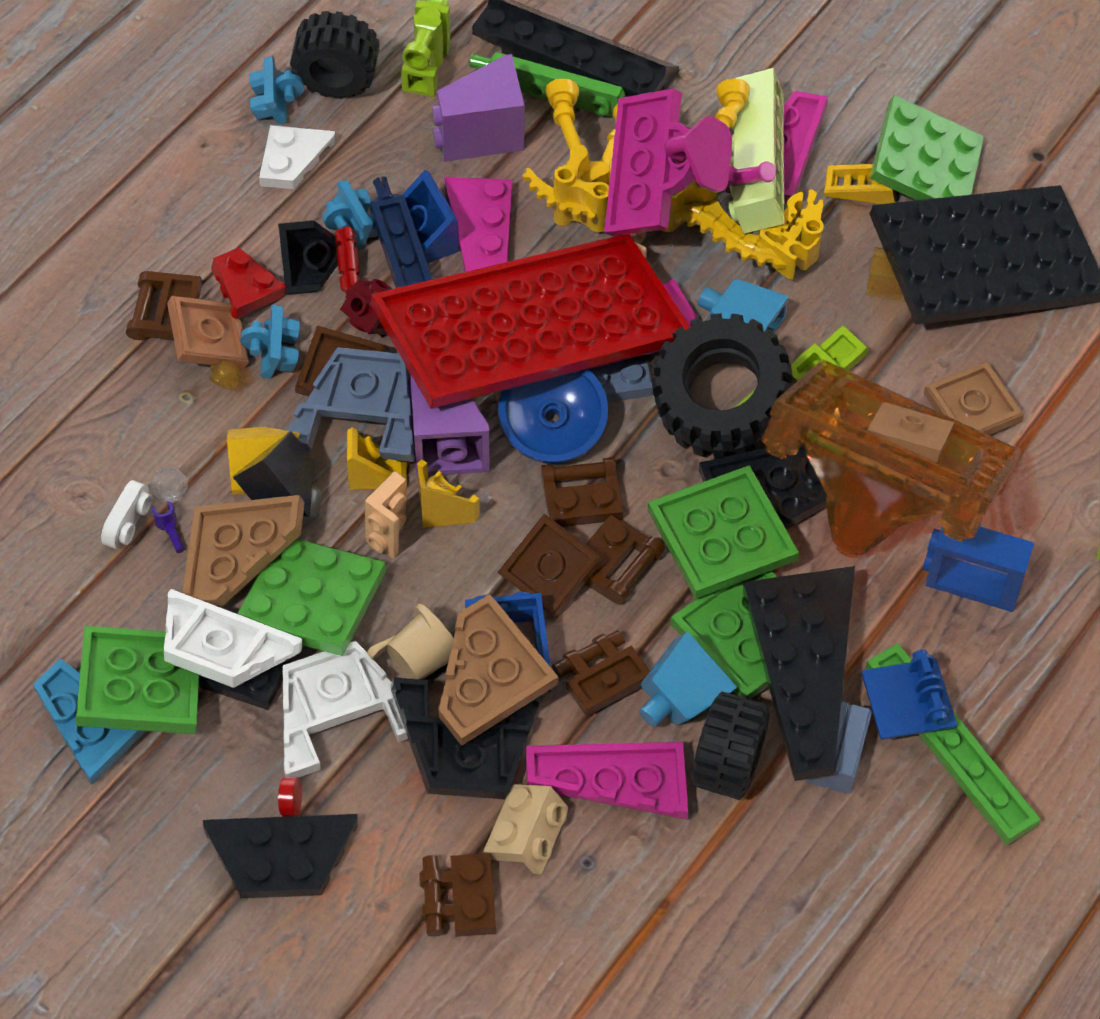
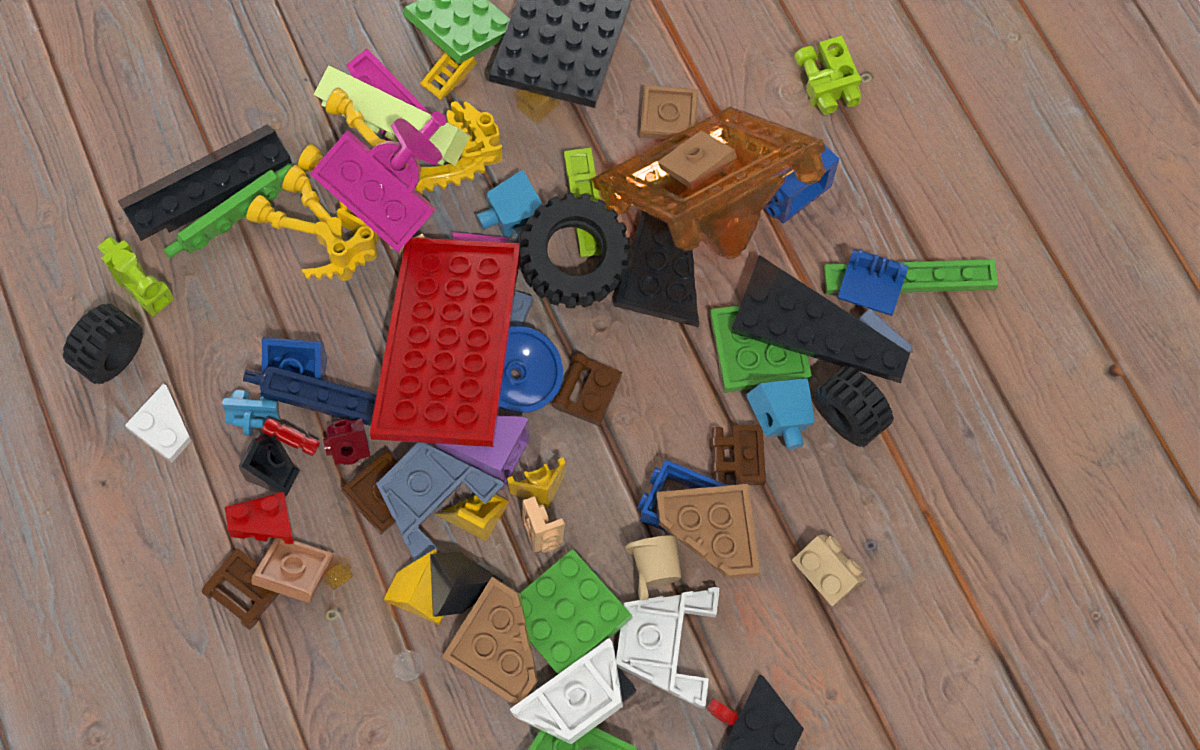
camera: 60 degrees left, 10 degrees up
(121, 522) = (428, 719): white plate -> none
(167, 522) = (443, 683): dark purple hand -> none
(269, 340) = (329, 529): dark azure hips -> none
(277, 89) = (104, 413): dark azure hips -> none
(472, 895) = (858, 631): reddish brown plate -> none
(475, 769) = (749, 595): black wing -> none
(480, 113) = (229, 271): medium lavender slope -> none
(482, 217) = (308, 320): dark pink wing -> none
(550, 564) = (639, 441): reddish brown plate -> none
(614, 544) = (646, 403): reddish brown plate -> none
(617, 774) = (822, 489): dark pink wing -> none
(722, 531) = (684, 318): bright green plate -> none

